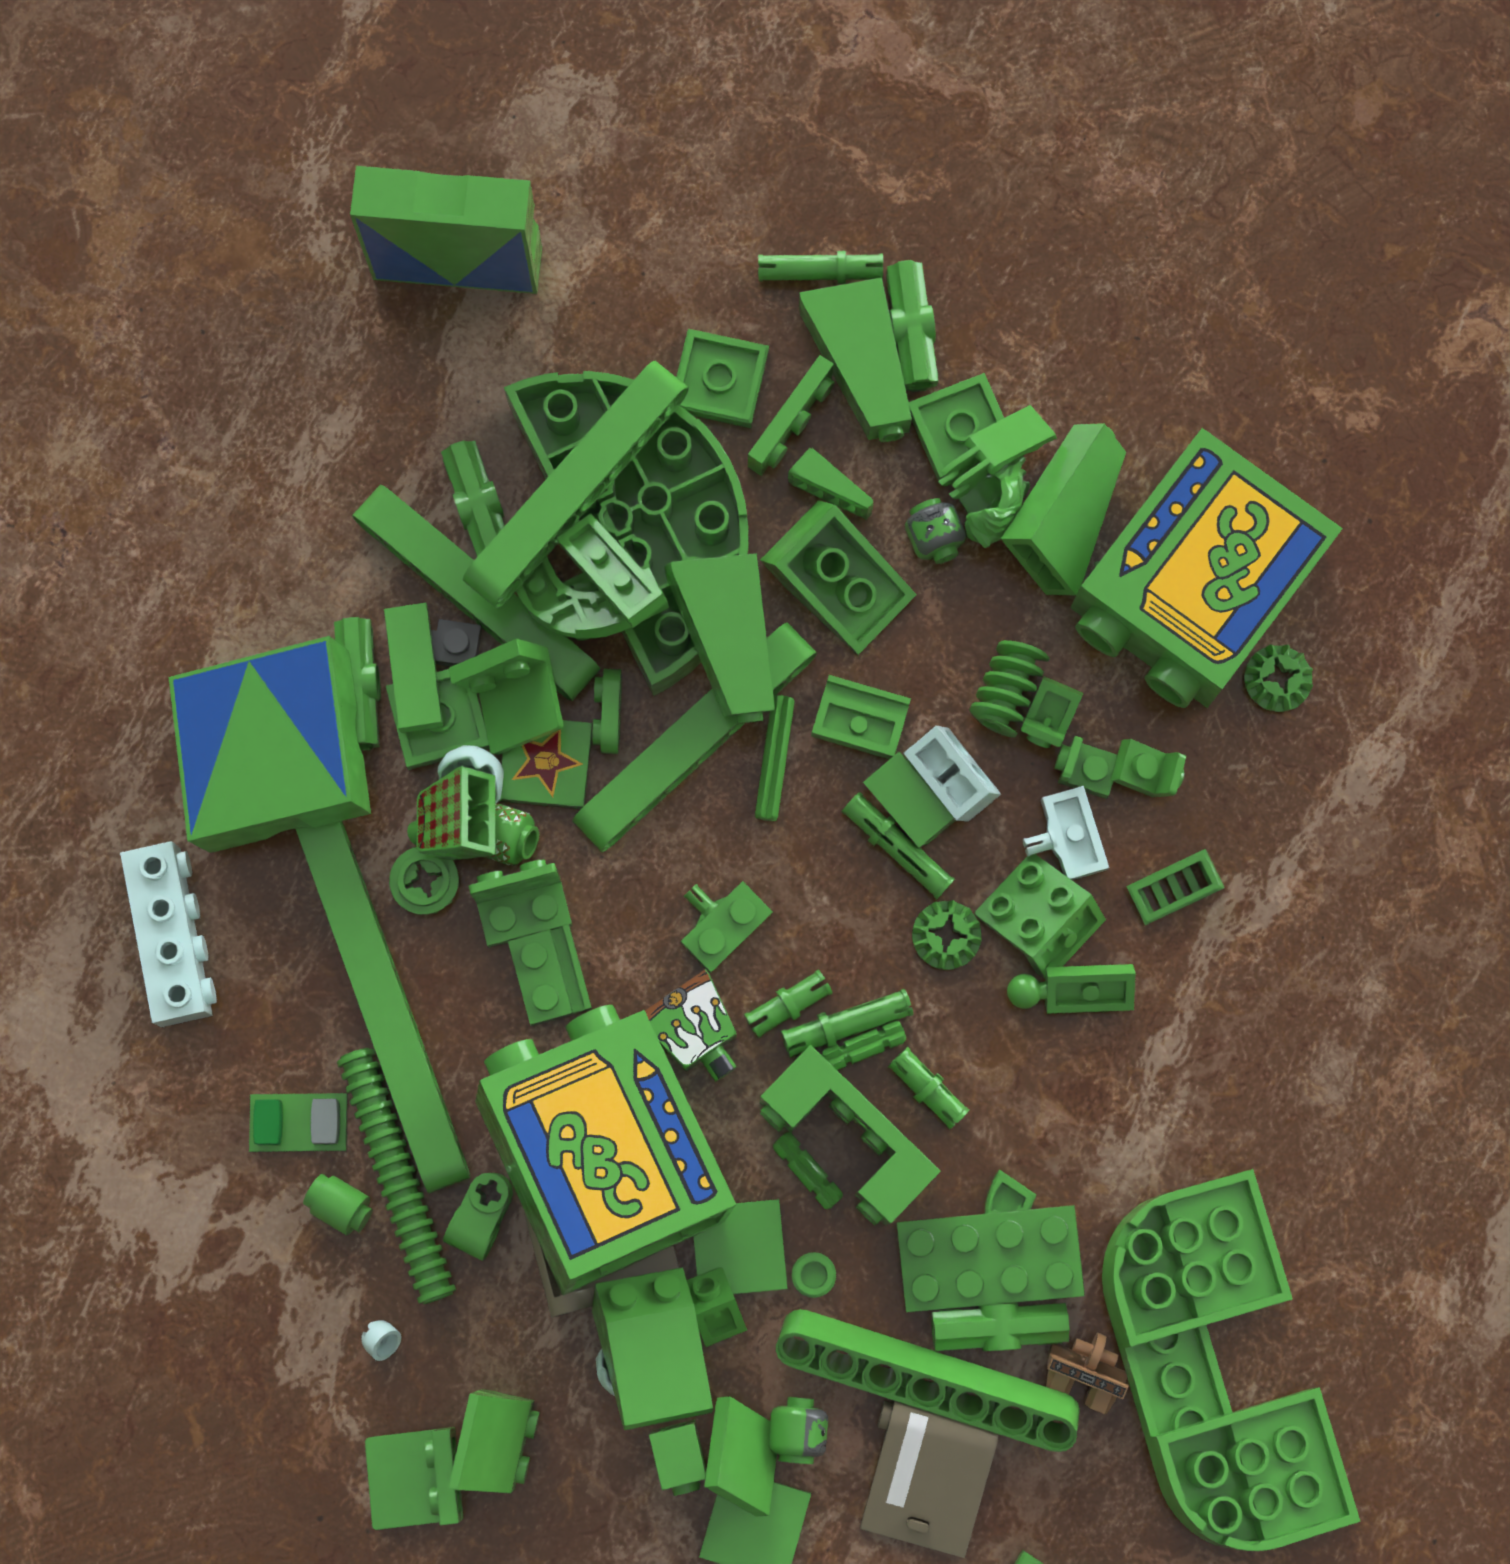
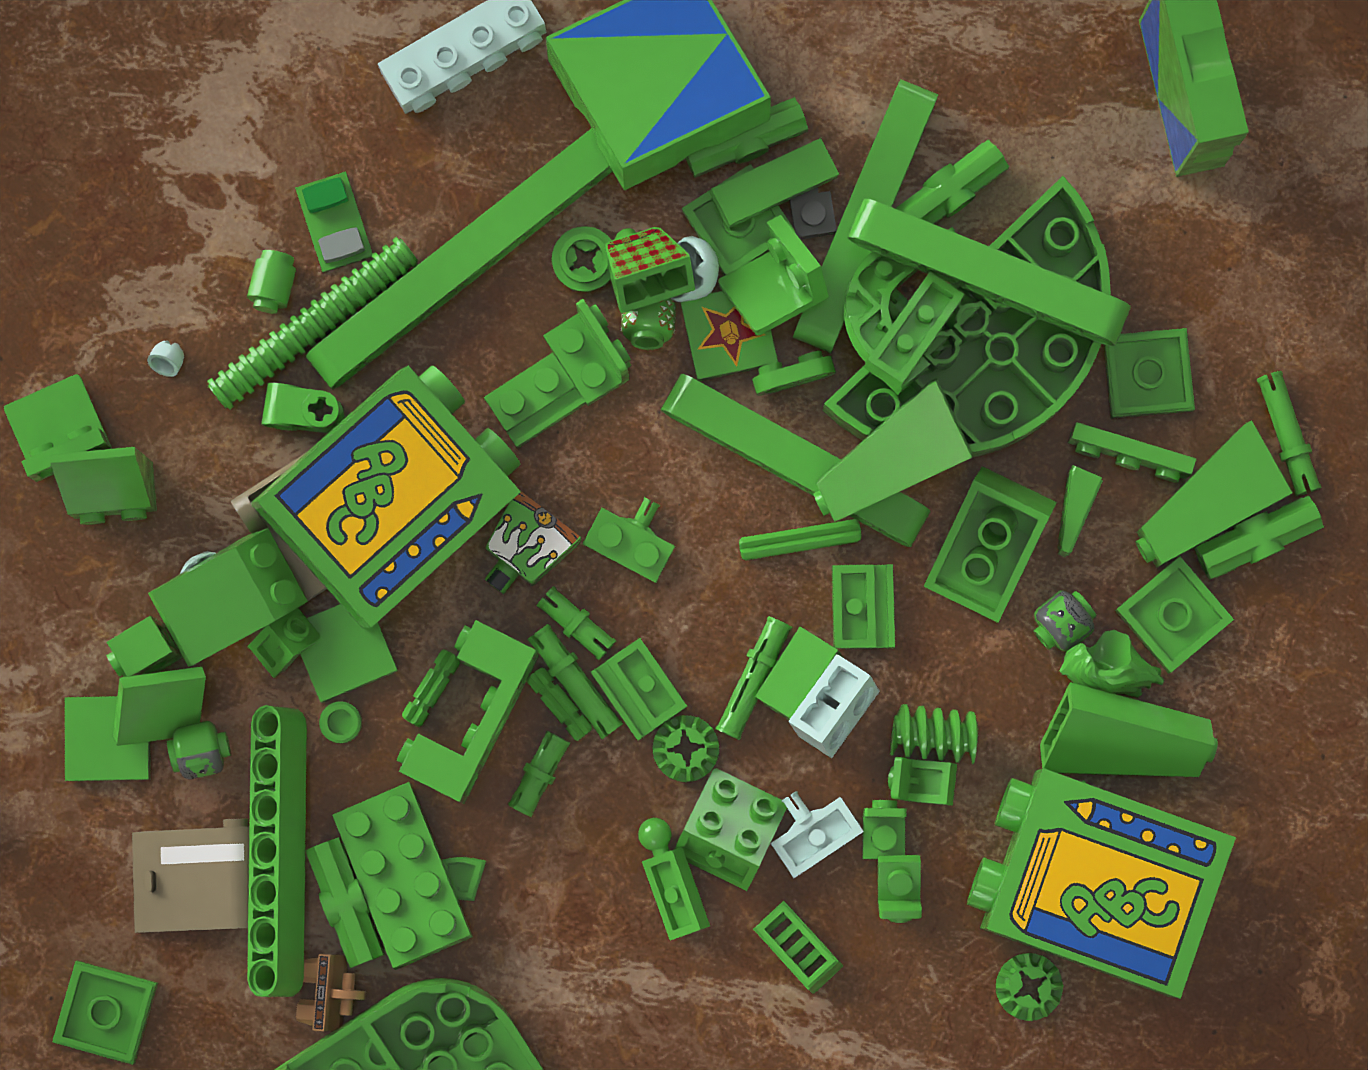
camera: 75 degrees right, 5 degrees up
(874, 961) = (639, 689): none -> bright green plate
(995, 448) = (1161, 653): bright green arm -> none

